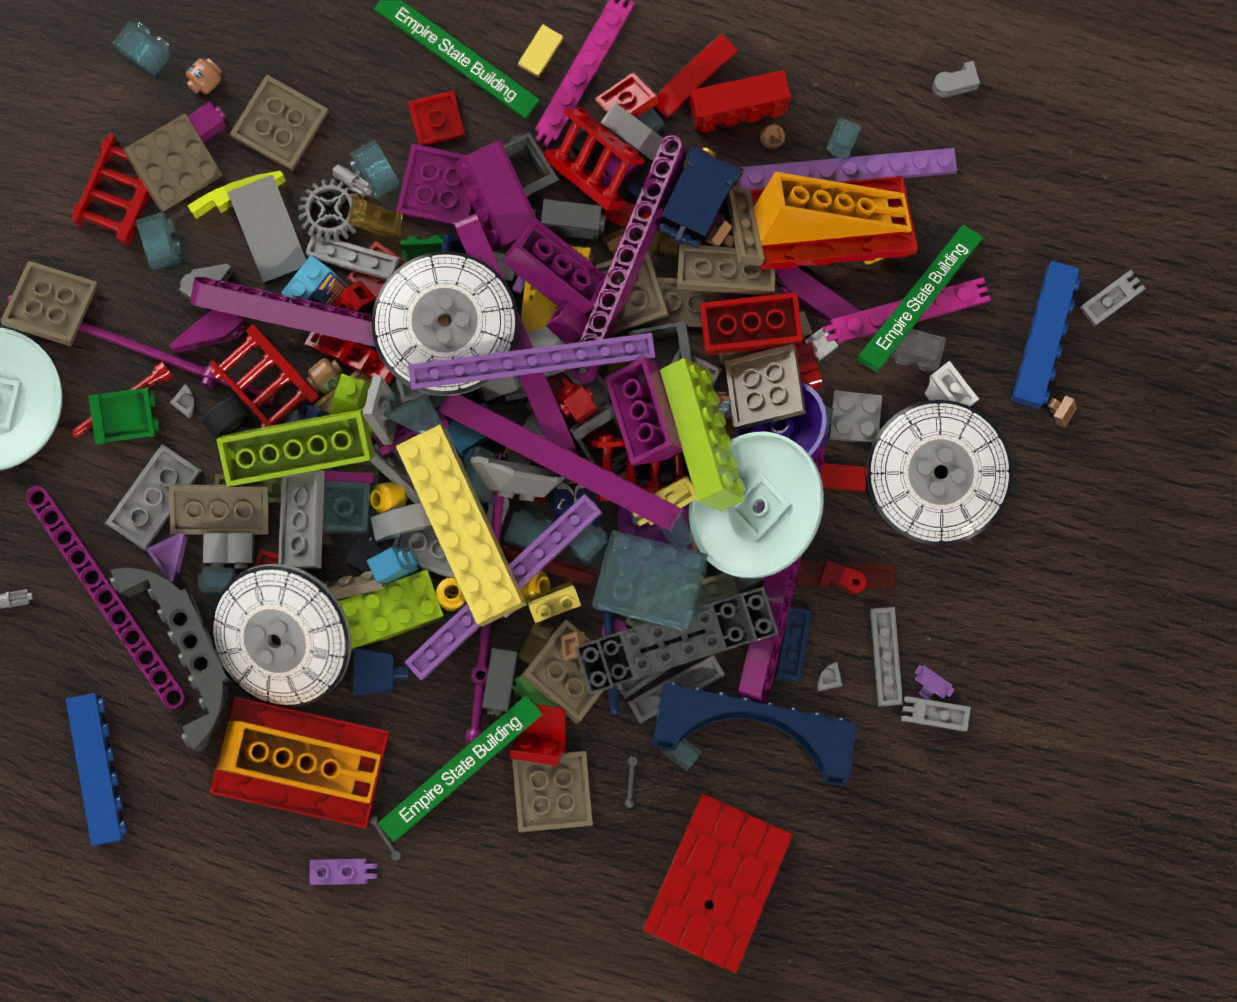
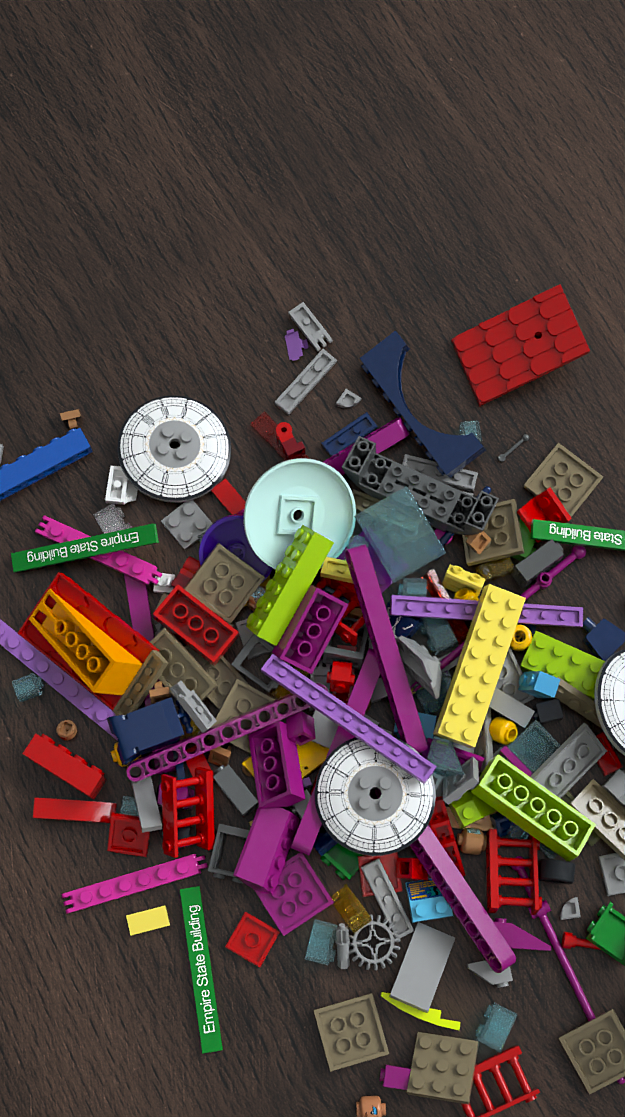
camera: 130 degrees left, 5 degrees down
(678, 248) = (193, 706): none -> light grey hinge

